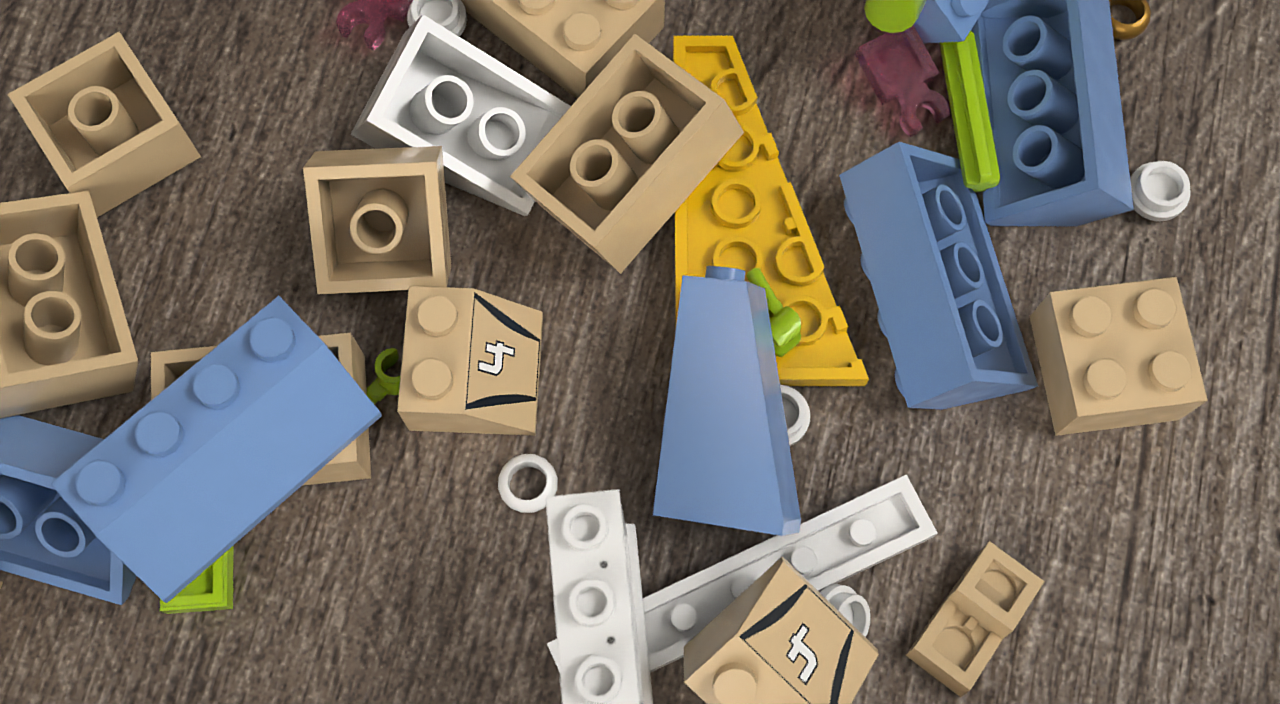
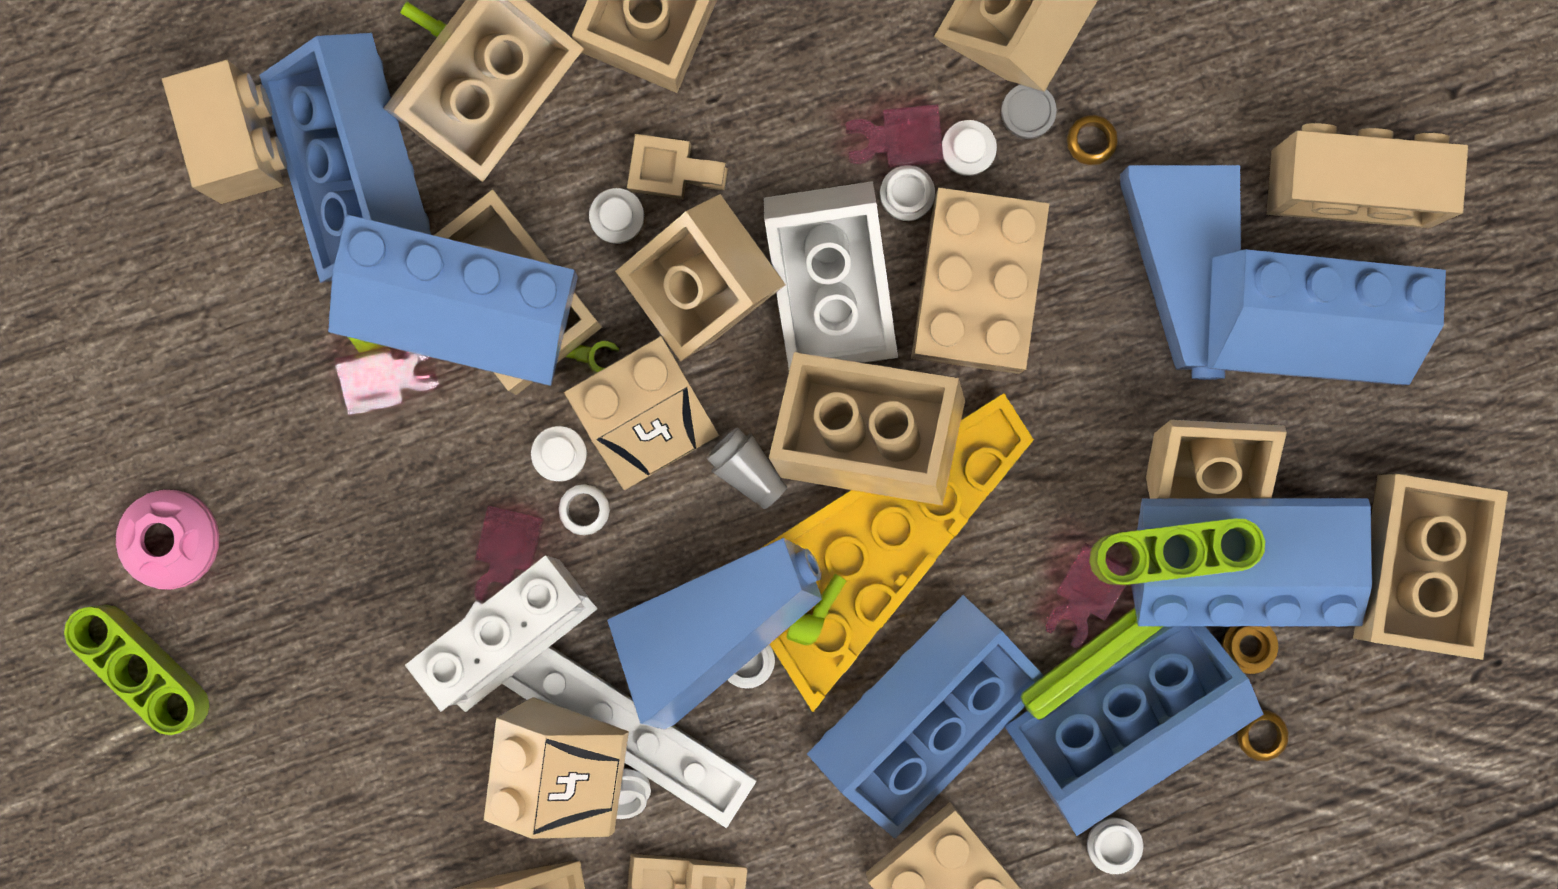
camera: 60 degrees right, 15 degrees up
(255, 604) = (373, 379): none -> clear pink plate
(260, 203) = (665, 166): none -> tan plate
(269, 274) = (616, 215): none -> white plate
(456, 470) = (558, 453): none -> white plate
(512, 582) = (507, 543): none -> clear pink plate
(590, 301) = (746, 468): none -> light grey cone

